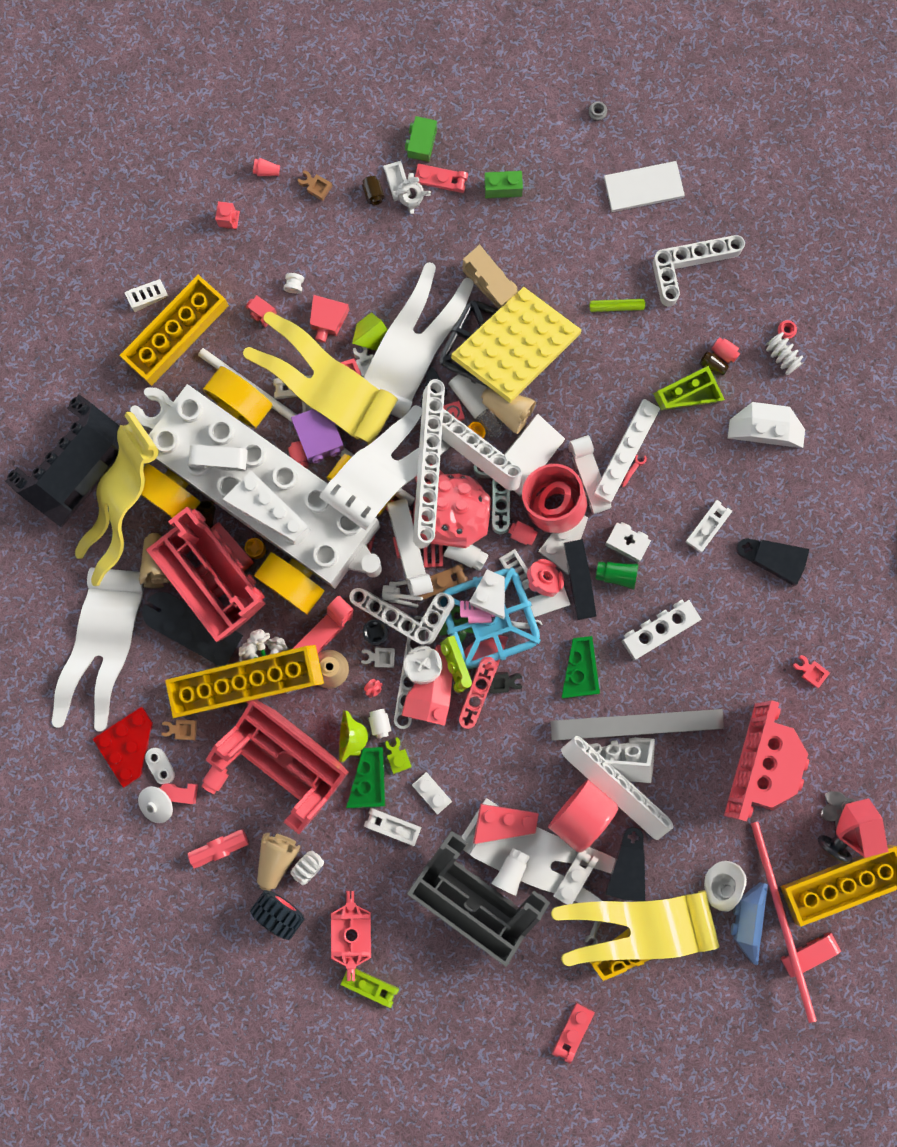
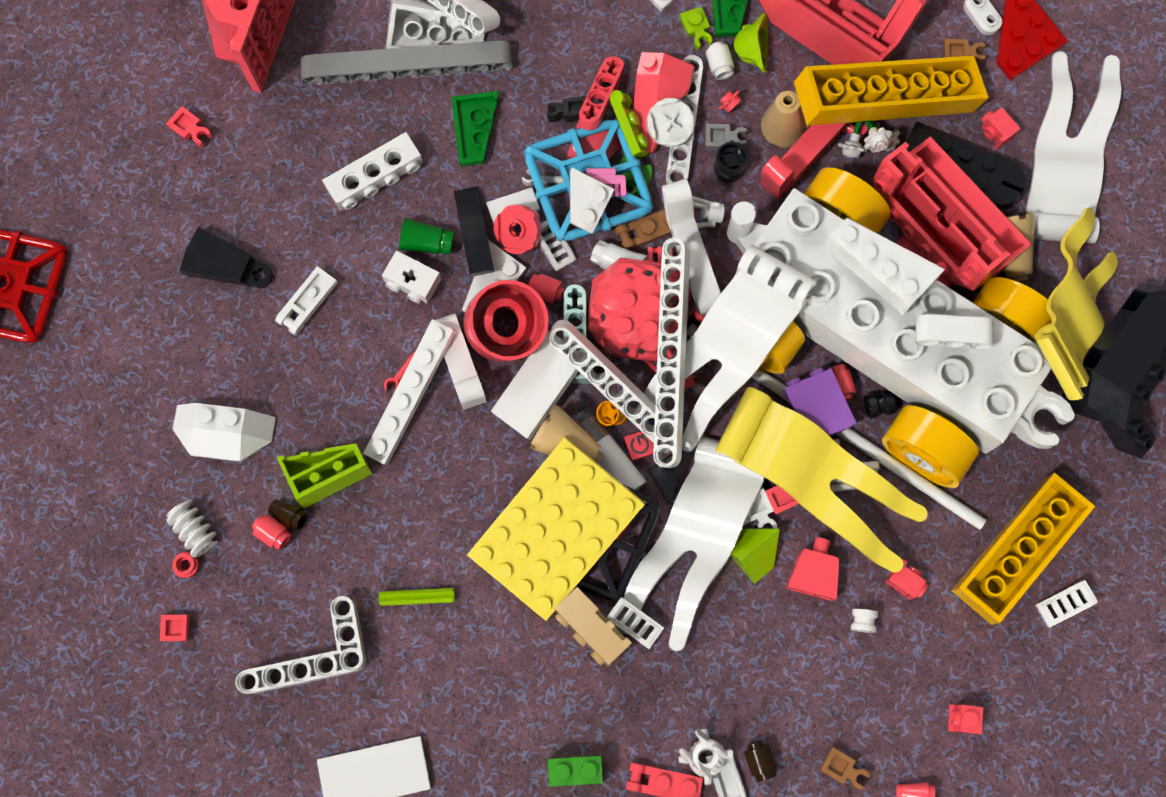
camera: 175 degrees right, 5 degrees down
(157, 661) = (999, 127): none -> coral brick
(272, 437) = (879, 404): none -> black wheel
(401, 617) = (696, 178): white beam -> none
(466, 295) = (630, 630): none -> white slope
(791, 284) = (174, 628): none -> coral plate

